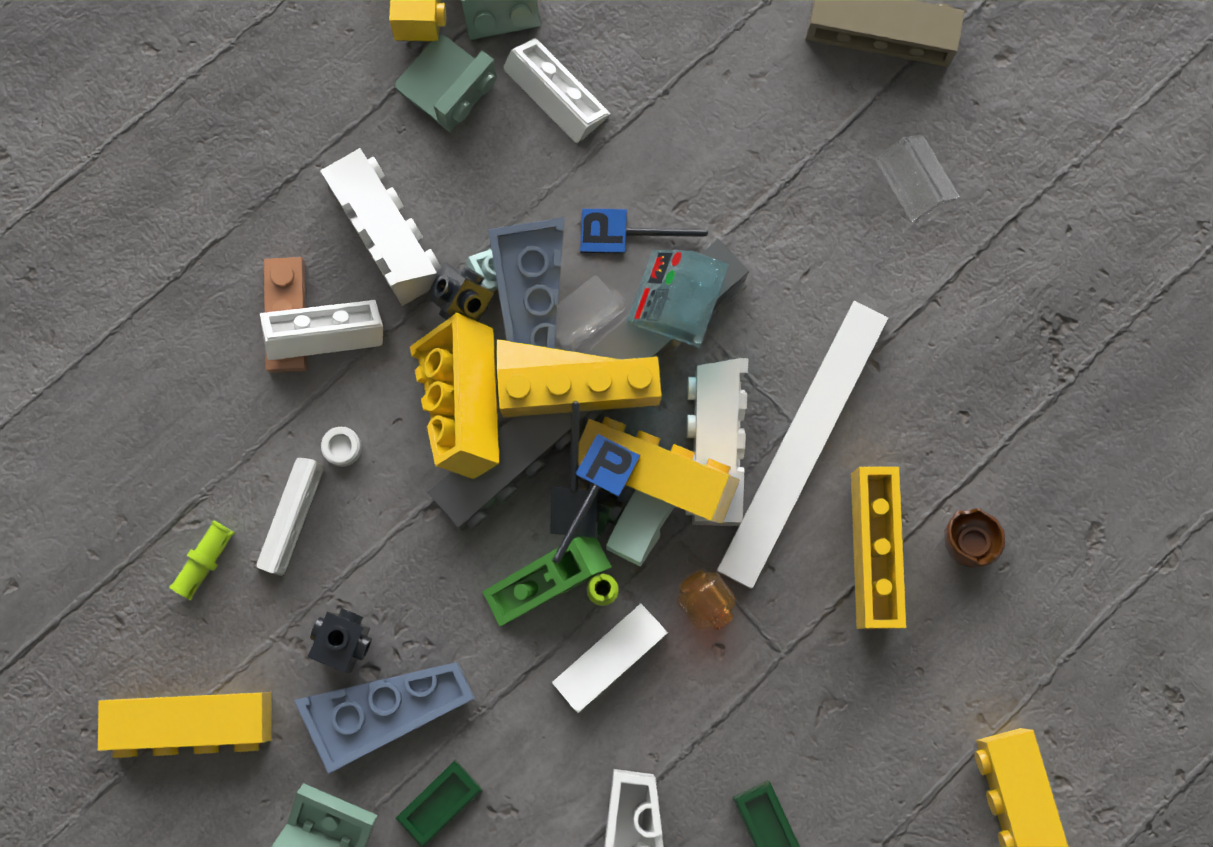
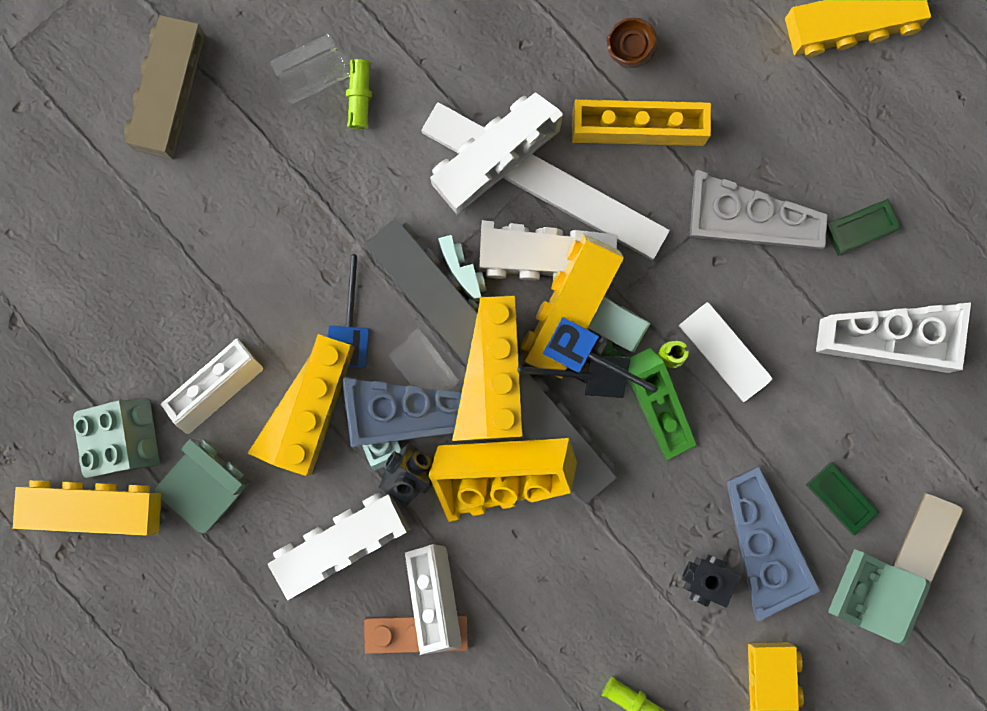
camera: 90 degrees left, 5 degrees up
(290, 516) = (598, 628): white slope -> none
(341, 446) = (537, 582): white tile -> none
(520, 184) = (303, 416): none -> yellow wedge
(678, 294) = (418, 279): clear light blue slope -> none
(685, 357) = (471, 282): none -> light aqua slope
(706, 600) = (679, 268): clear orange head -> none
(774, 681) = (741, 215): none -> light grey wing
(831, 380) = (497, 151): none -> white wedge
(891, 230) = (358, 94): none -> lime pin

